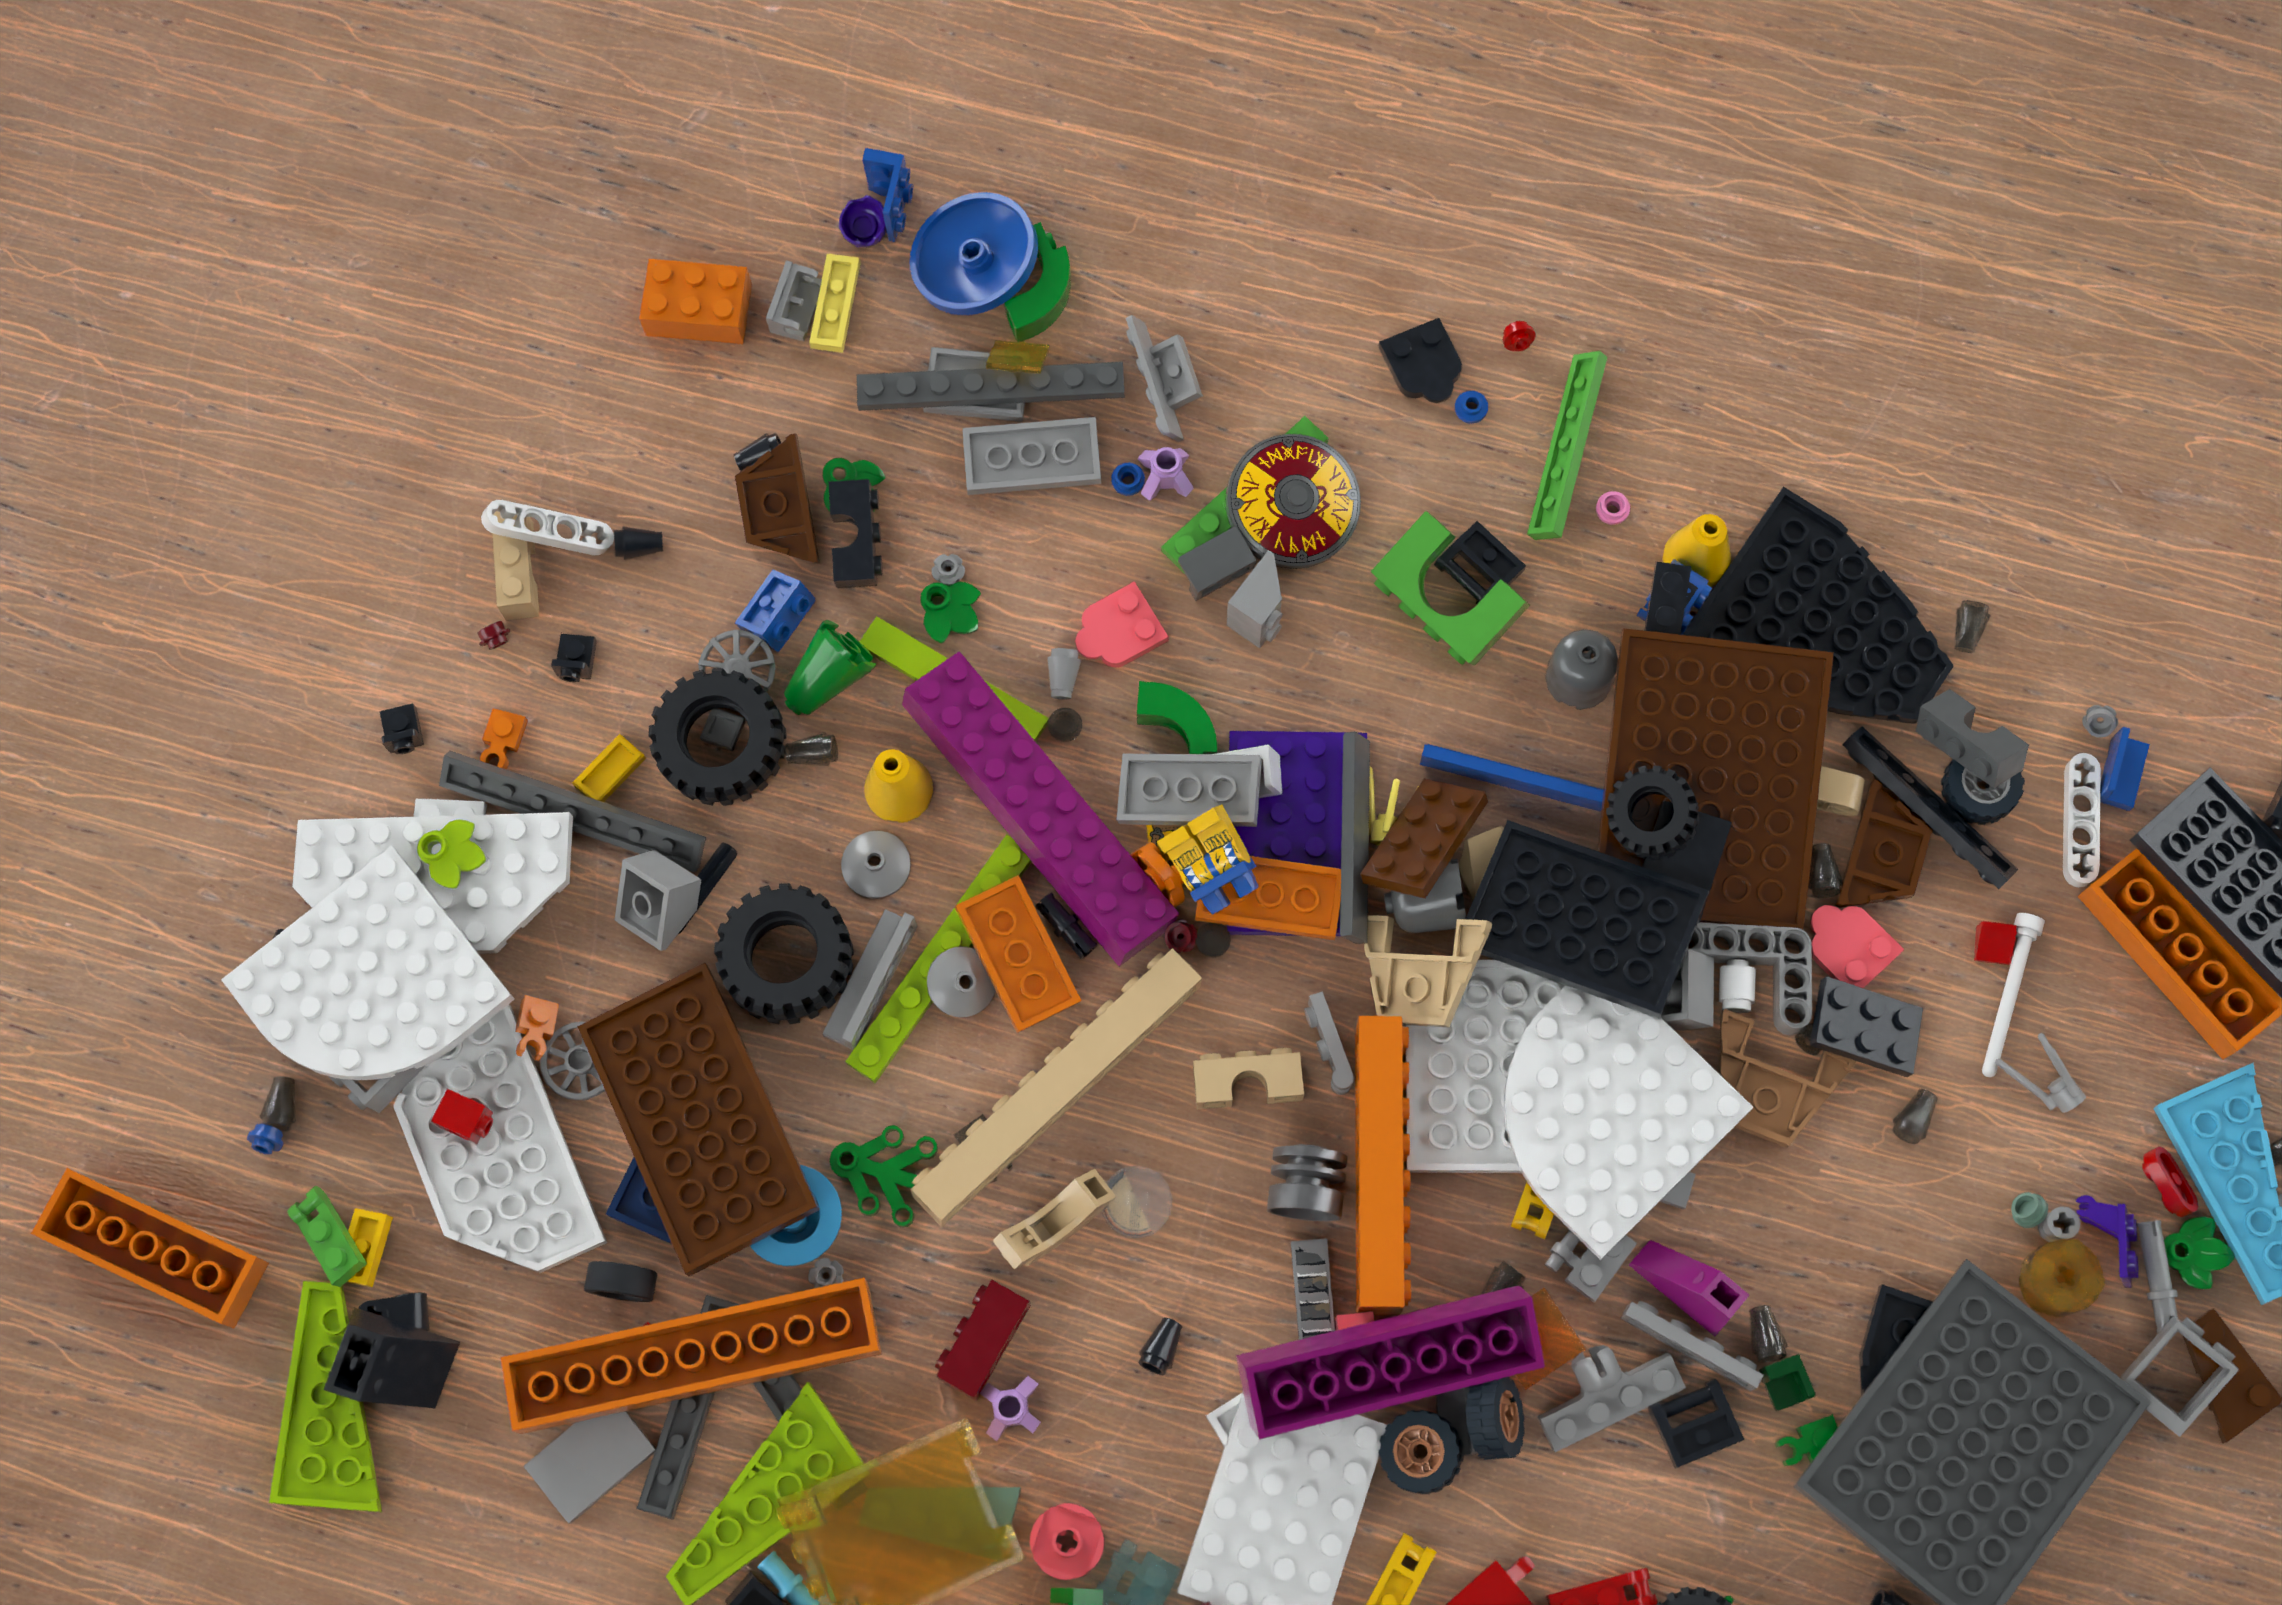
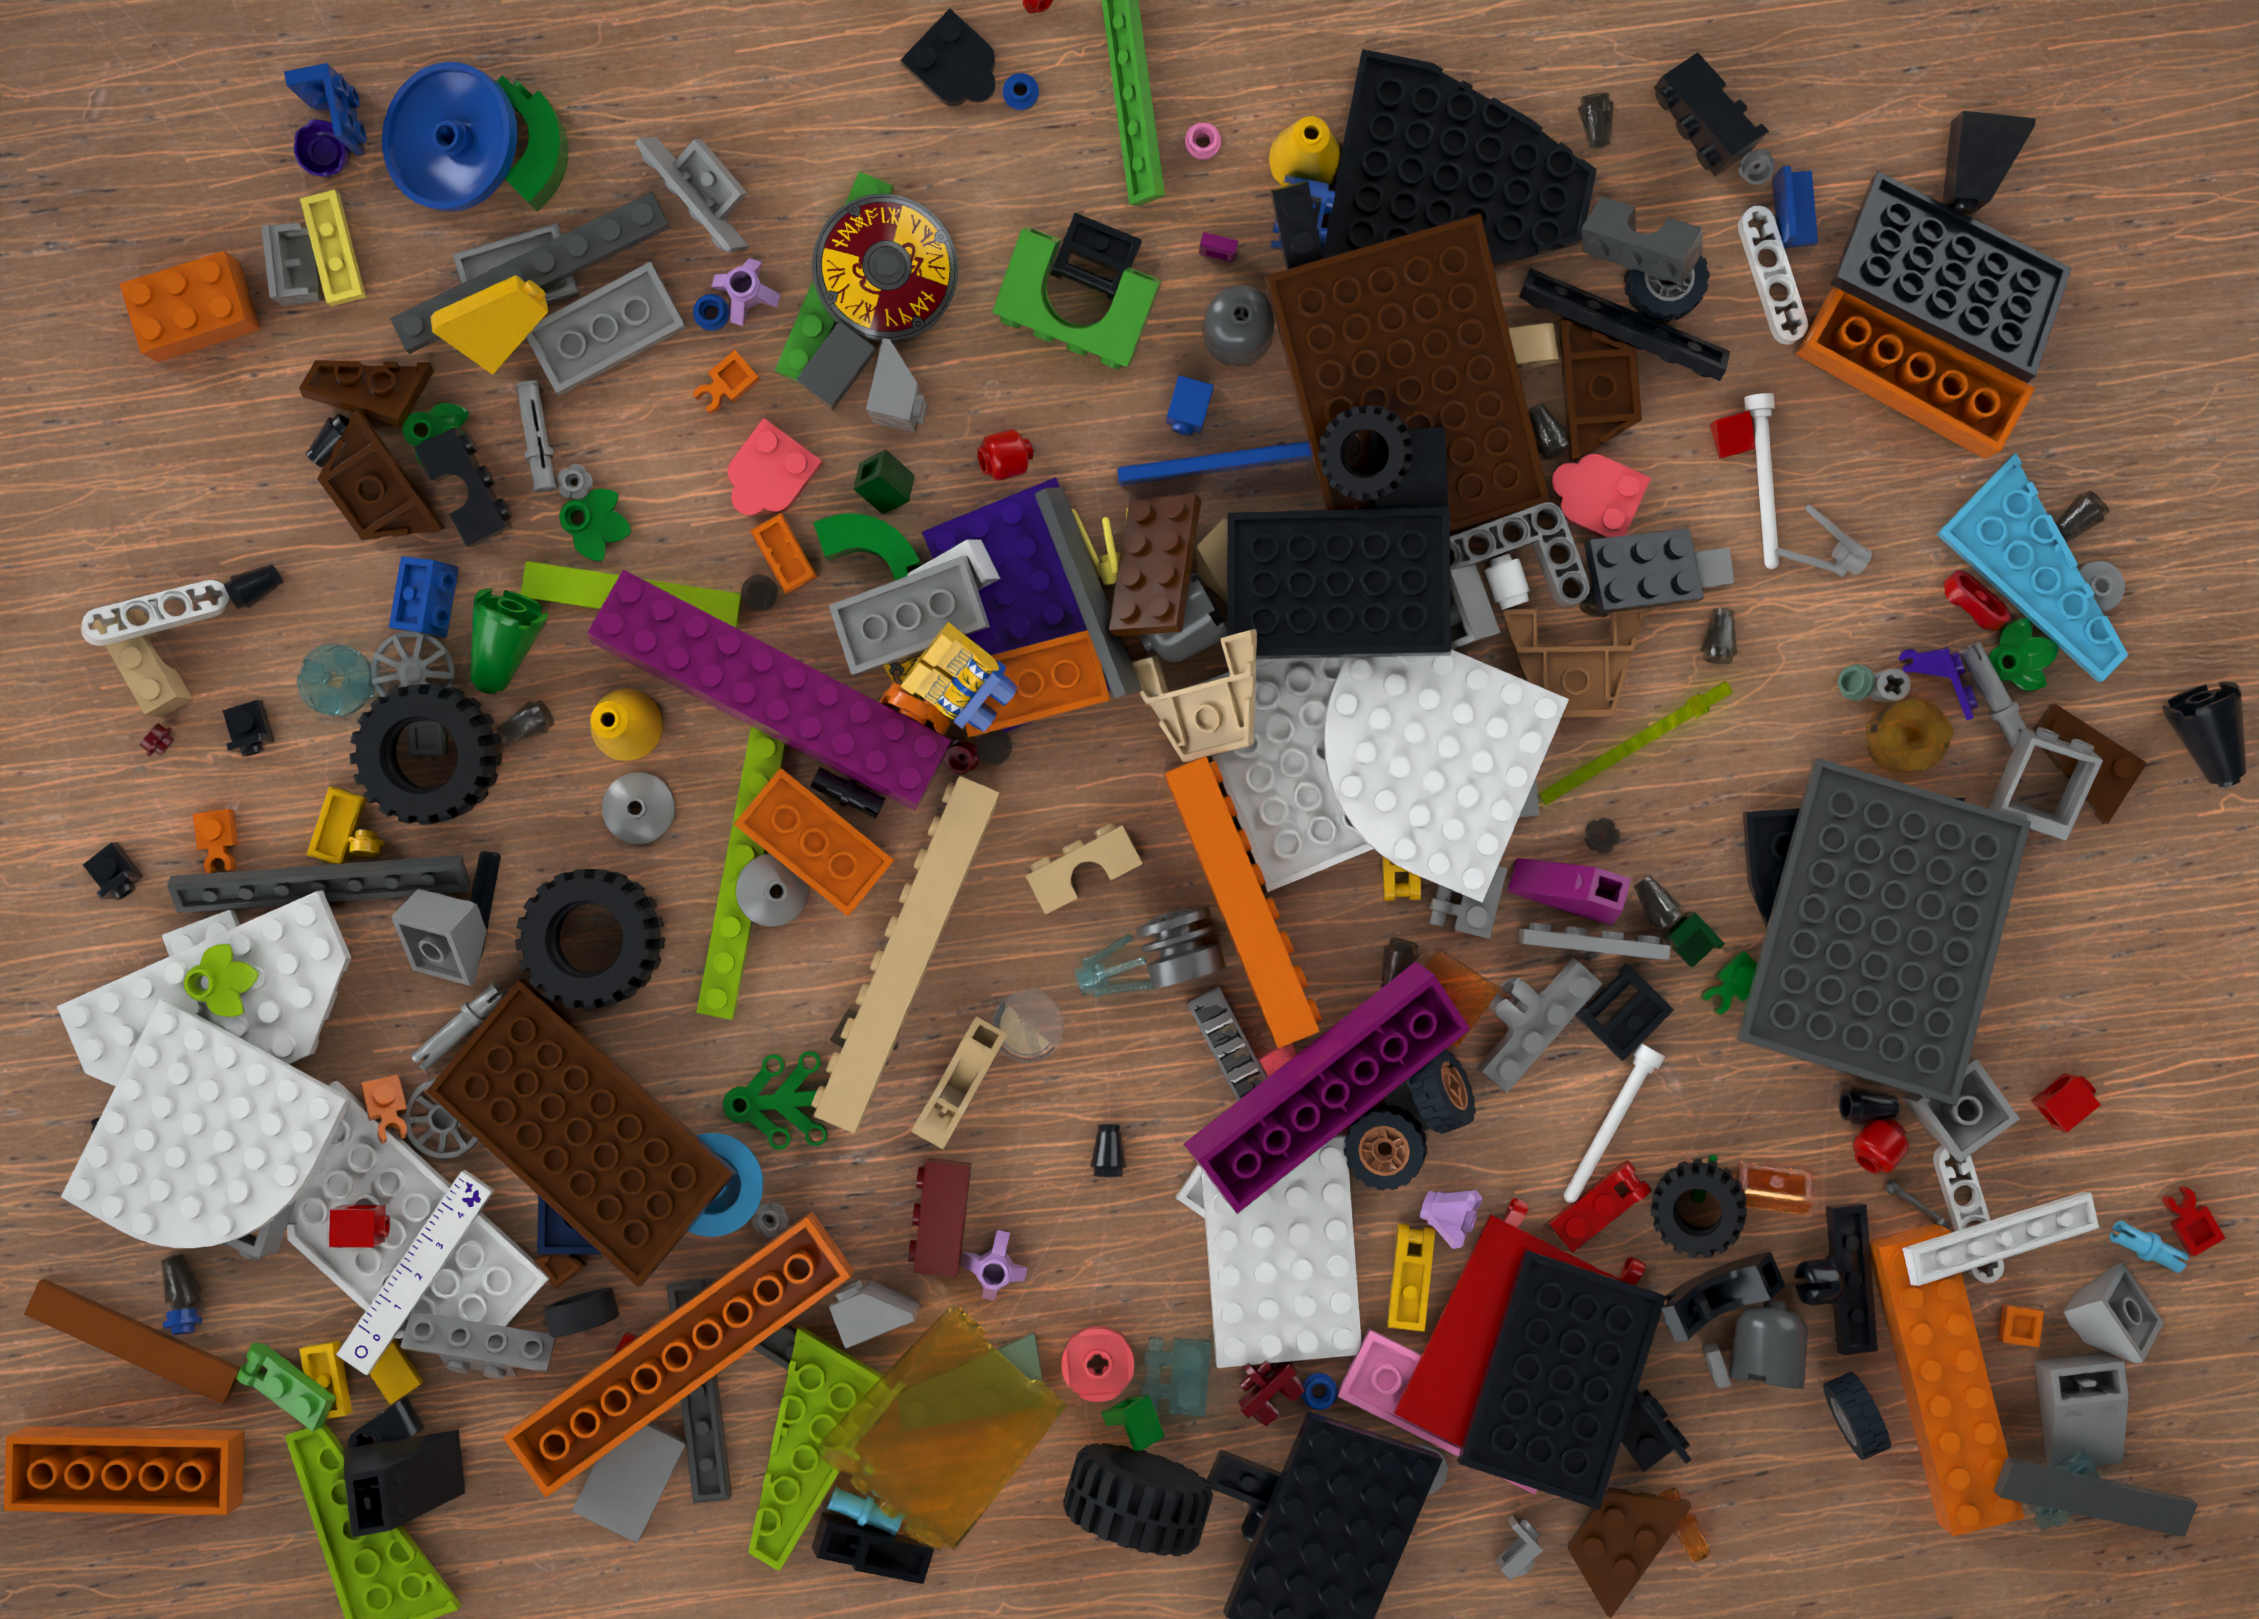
camera: 25 degrees left, 15 degrees up
(213, 1140) = (132, 1341): none -> dark orange tile
(424, 1256) = (395, 1373): none -> yellow tile
(490, 1182) = (415, 1272): none -> white tile
(514, 1274) = (478, 1345): none -> light grey bracket
(618, 1237) = (560, 1267): none -> dark orange tile
(626, 795) = (365, 844): none -> yellow plate
(630, 985) = (471, 1016): none -> light grey pin
(654, 635) = (315, 674): none -> clear light blue plate
(818, 430) = (378, 391): none -> reddish brown wing
(870, 979) = (684, 923): light grey fence -> none
(878, 1394) = (870, 1310): none -> light grey slope
(929, 532) = (538, 449): none -> light grey pin
(941, 409) = (492, 321): none -> yellow slope
(1017, 356) = (544, 230): clear yellow piece -> none
(1063, 671) = (734, 541): light grey cone -> none
(1101, 700) = (784, 553): none -> orange plate
(1120, 538) = (731, 378): none -> orange plate
(1215, 675) = (884, 482): none -> dark green panel
(1217, 1177) = (1093, 976): none -> clear light blue plant
(1330, 695) = (1004, 455): none -> red head
(1330, 1045) = (1146, 802): light grey plate -> none
(1459, 1542) = (1452, 1214): none -> lavender rock
(1510, 719) = (1189, 405): none -> blue brick
(1590, 598) = (1218, 247): none -> magenta tile
(1698, 1479) = (1645, 1061): none -> white piece
(1735, 1260) = (1592, 839): none -> clear smoke plate
(1870, 1171) = (1695, 707): none -> clear neon green bar
(1933, 1053) = (1715, 567): none -> light grey tile
(2071, 659) = (1707, 114): none -> black wedge

